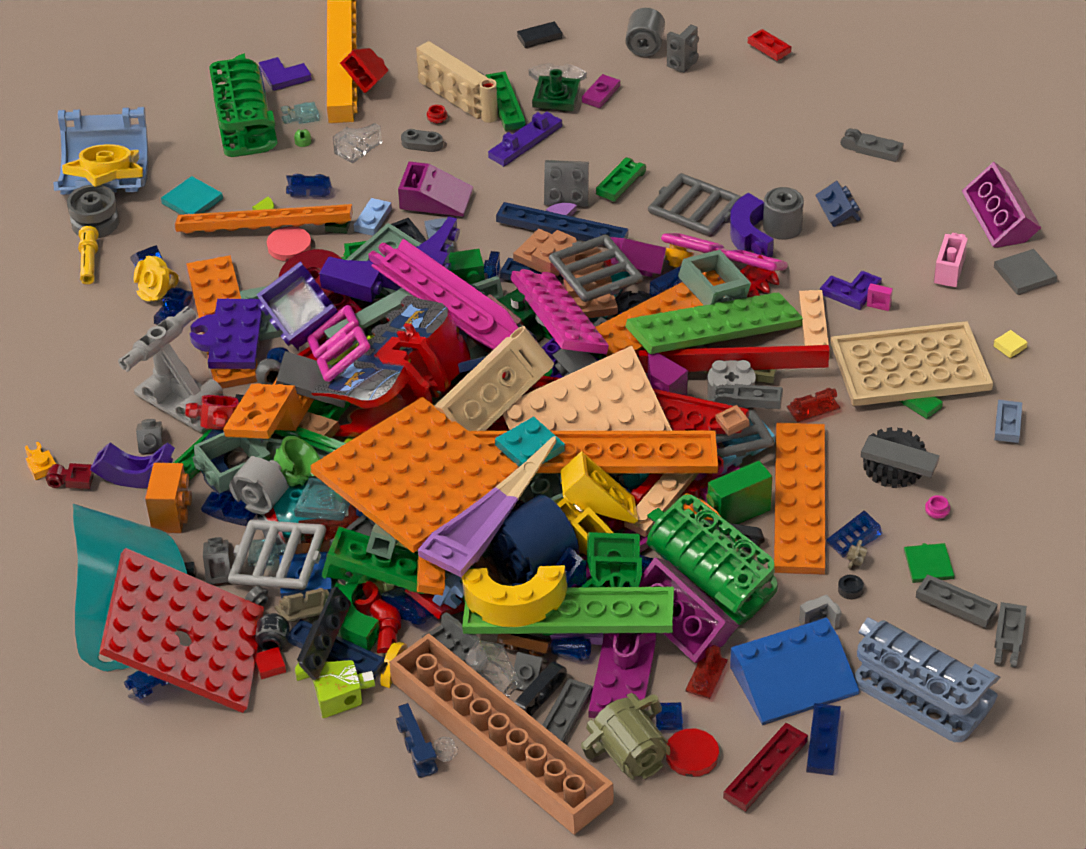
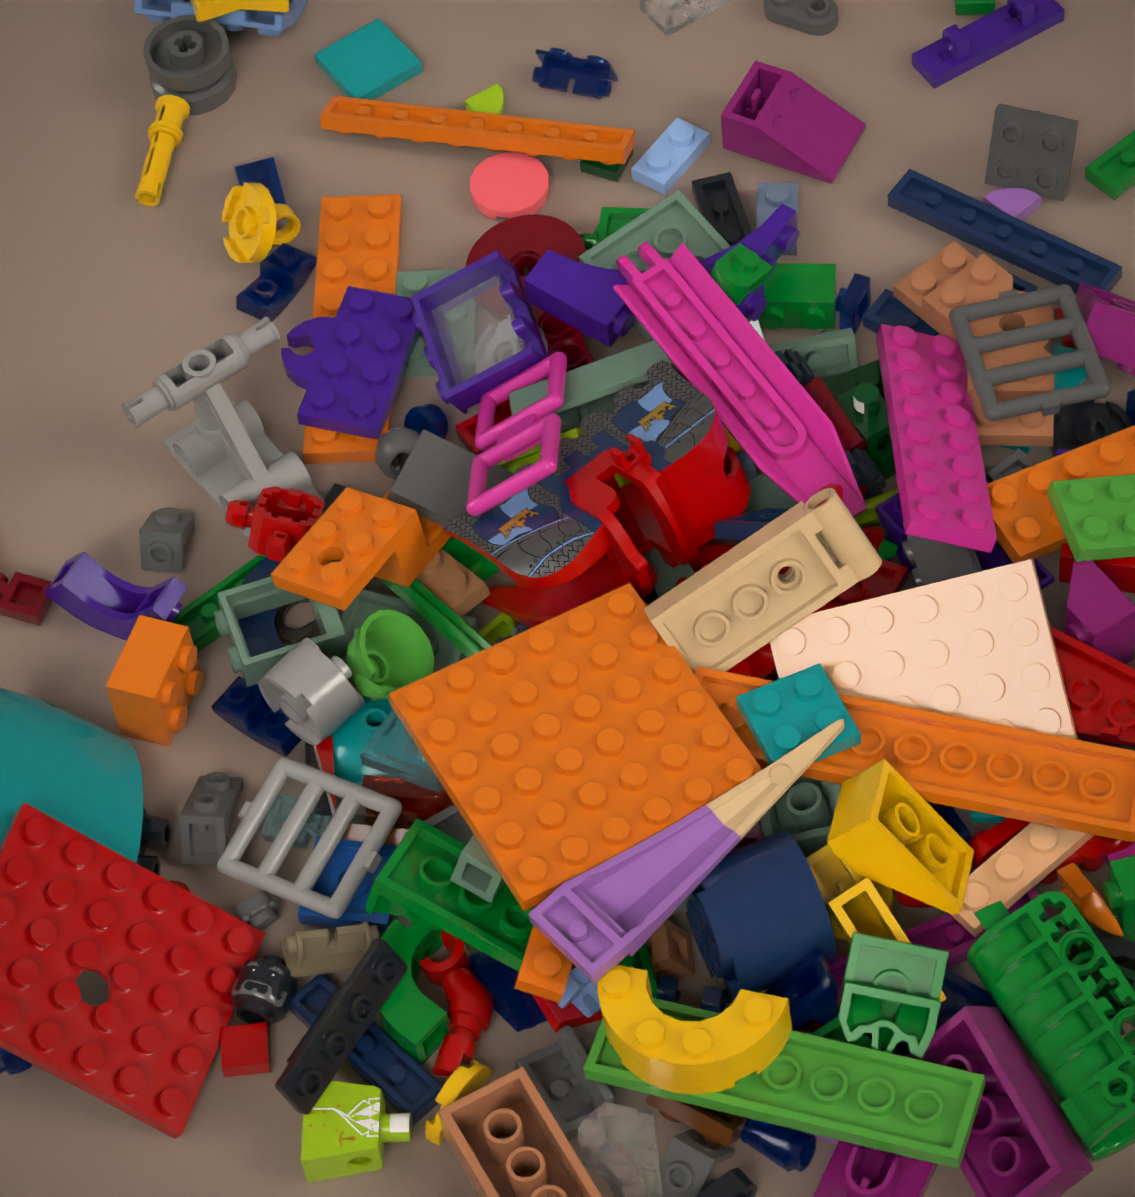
camera: 20 degrees right, 10 degrees up
(437, 248) = (740, 273): none -> green plate

